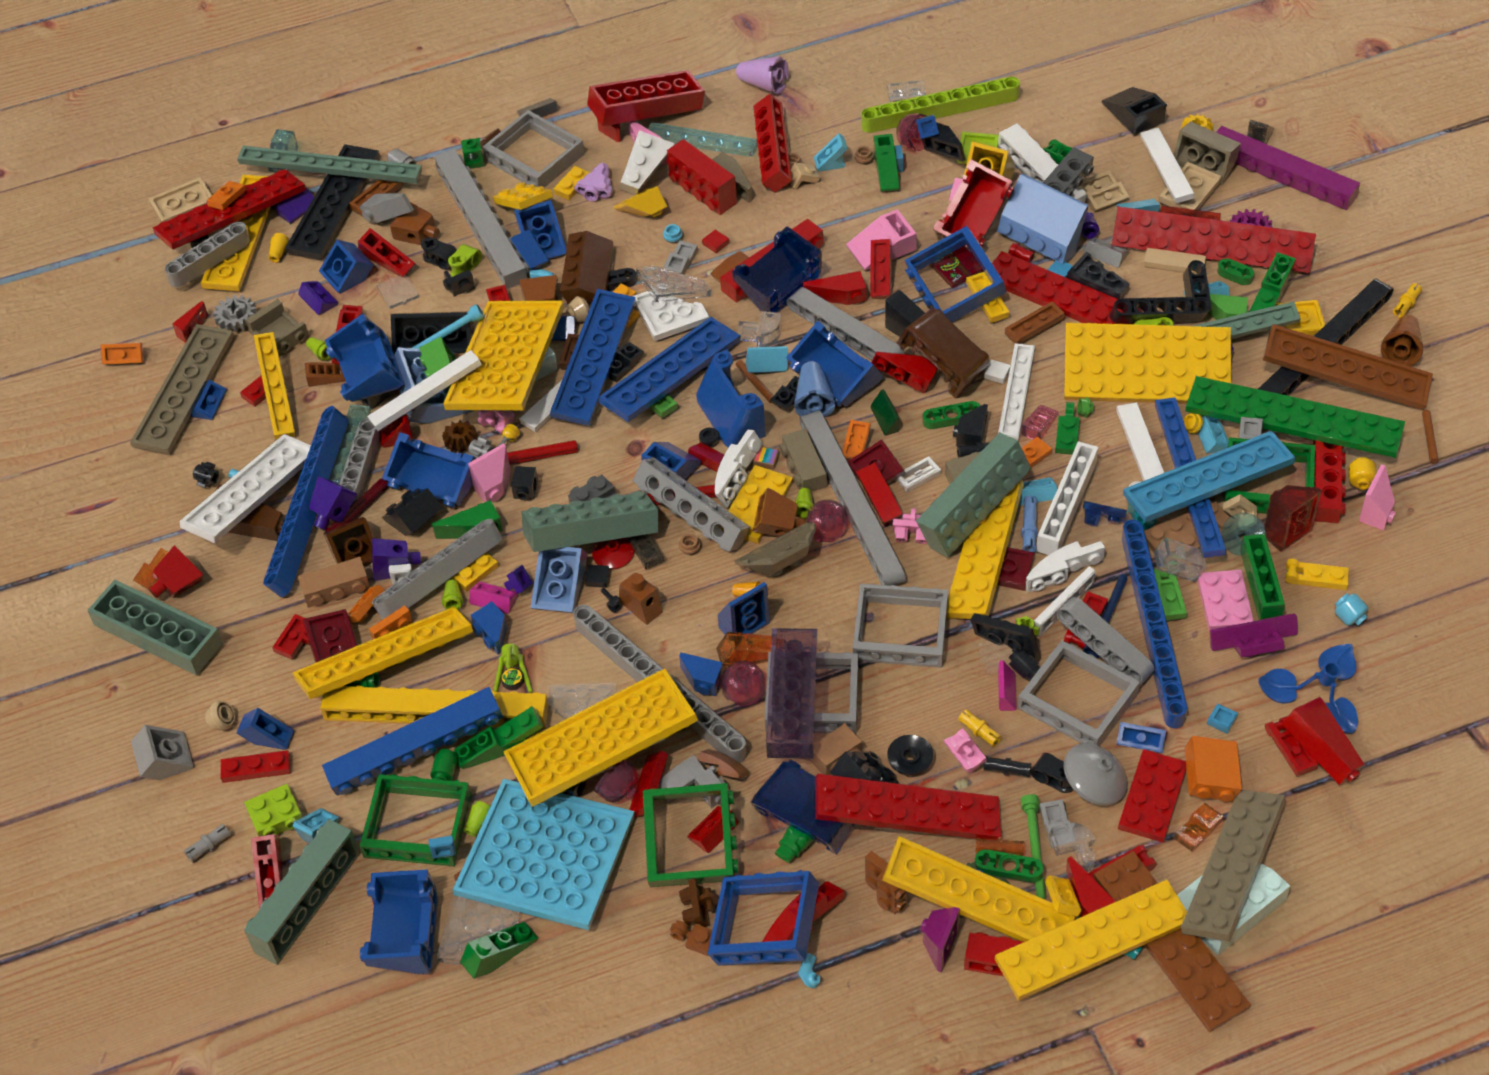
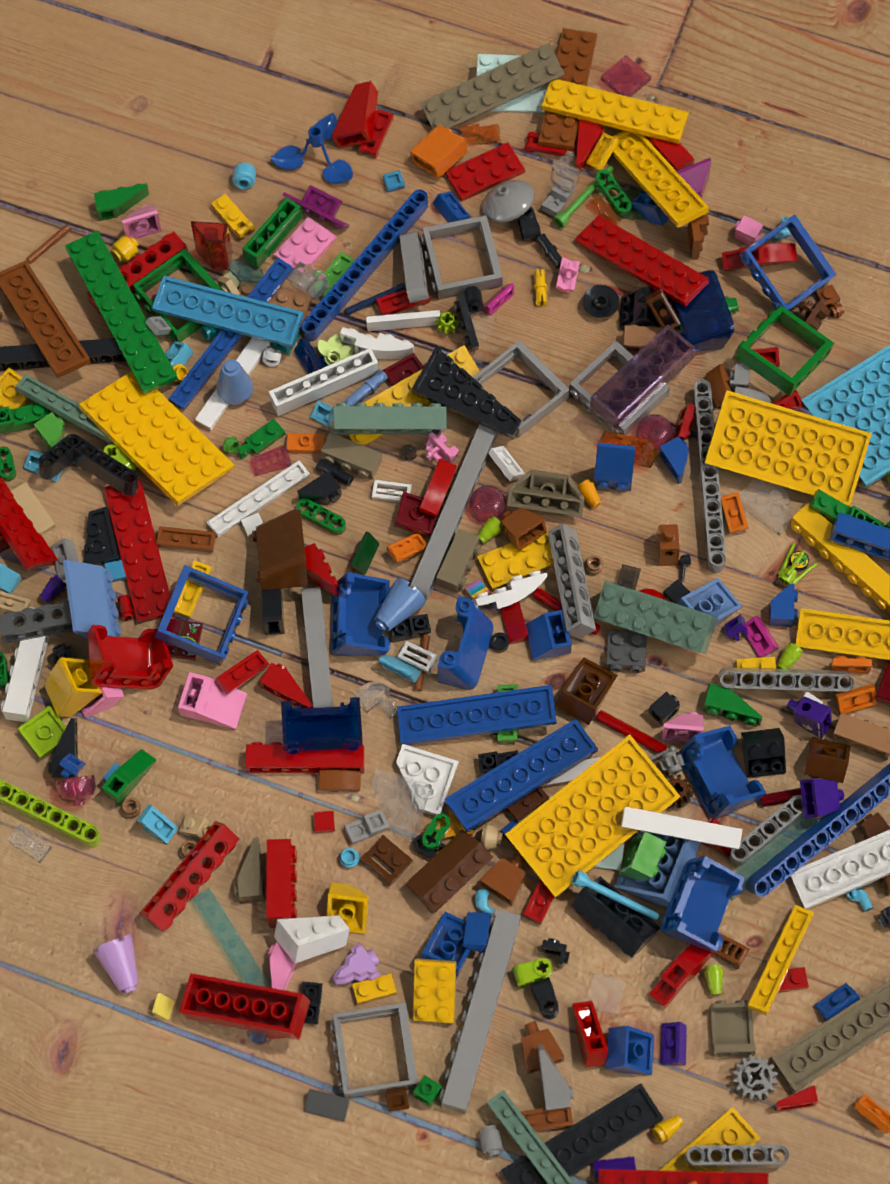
camera: 140 degrees left, 15 degrees up
(602, 448) = (585, 690): none -> reddish brown slope
(605, 668) = (734, 513): none -> orange plate
(608, 146) = (313, 992): none -> black slope
(621, 281) = (440, 834): none -> green beam
(643, 256) = (391, 856): none -> reddish brown plate
(708, 78) = (162, 1007): none -> light yellow slope
(719, 701) = (685, 419): none -> red plate
(761, 376) = (430, 664): none -> white tile
(837, 763) = (662, 309): none -> reddish brown brick
(840, 936) = (748, 230): none -> bright pink brick
(845, 559) = (506, 463): none -> white plate
(946, 564) = (459, 392): none -> black wing
(1097, 533) = (334, 349): none -> yellowish green plate
(1128, 1003) = (625, 77): none -> clear pink plate
(1136, 437) = (234, 383): none -> medium blue cone
(1424, 501) = (117, 201): none -> green slope

